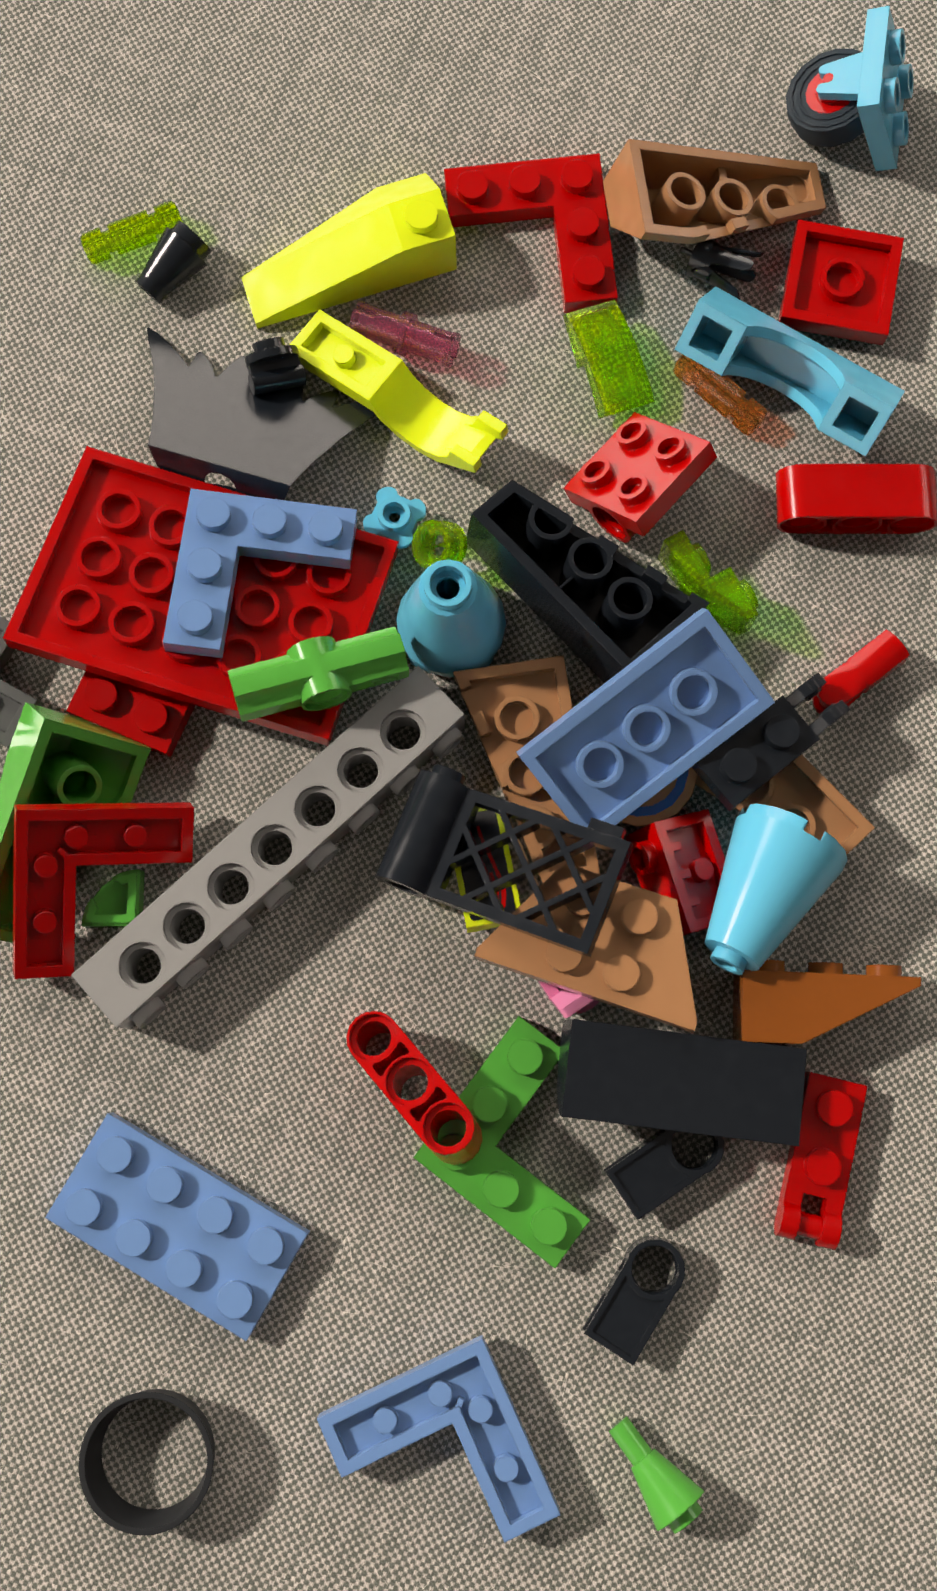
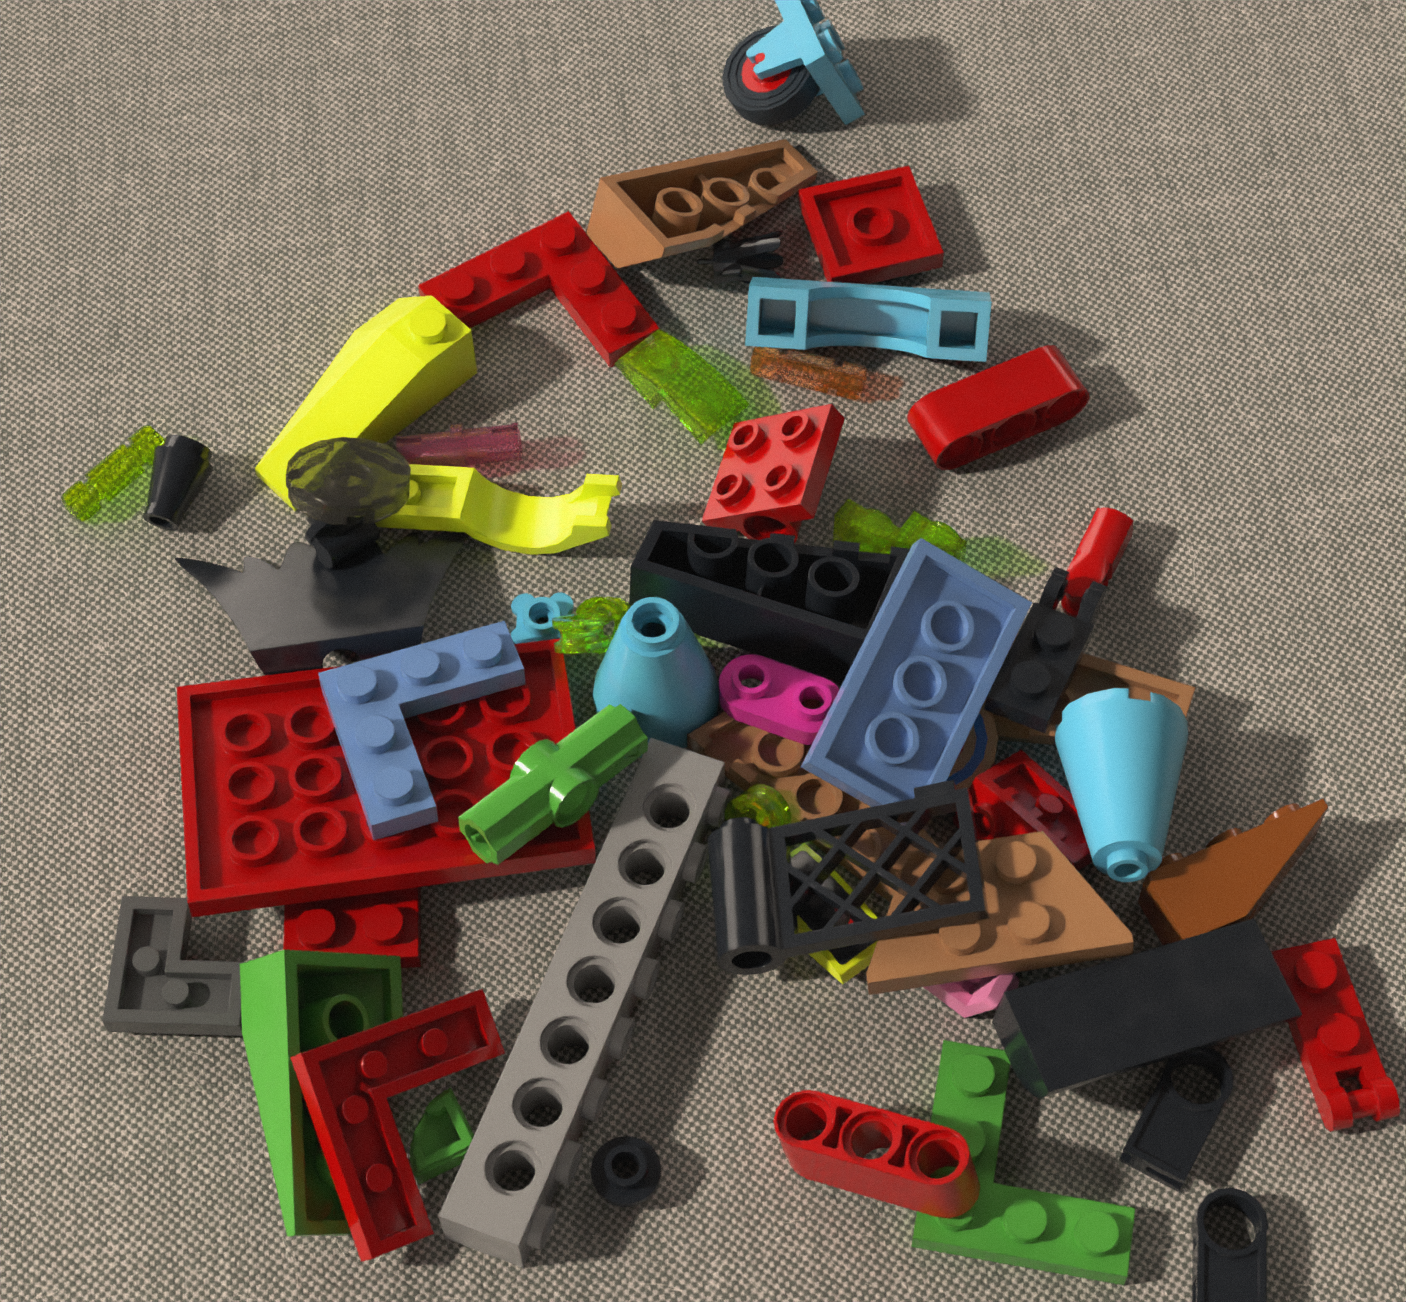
camera: 30 degrees left, 20 degrees down
(251, 998) = (628, 1191): none -> black plate
(294, 327) = (348, 480): none -> clear smoke tile
(410, 548) = (581, 632): none -> clear neon green bush
(476, 763) = (761, 804): none -> clear neon green bush
(538, 677) = (777, 701): none -> dark pink plate

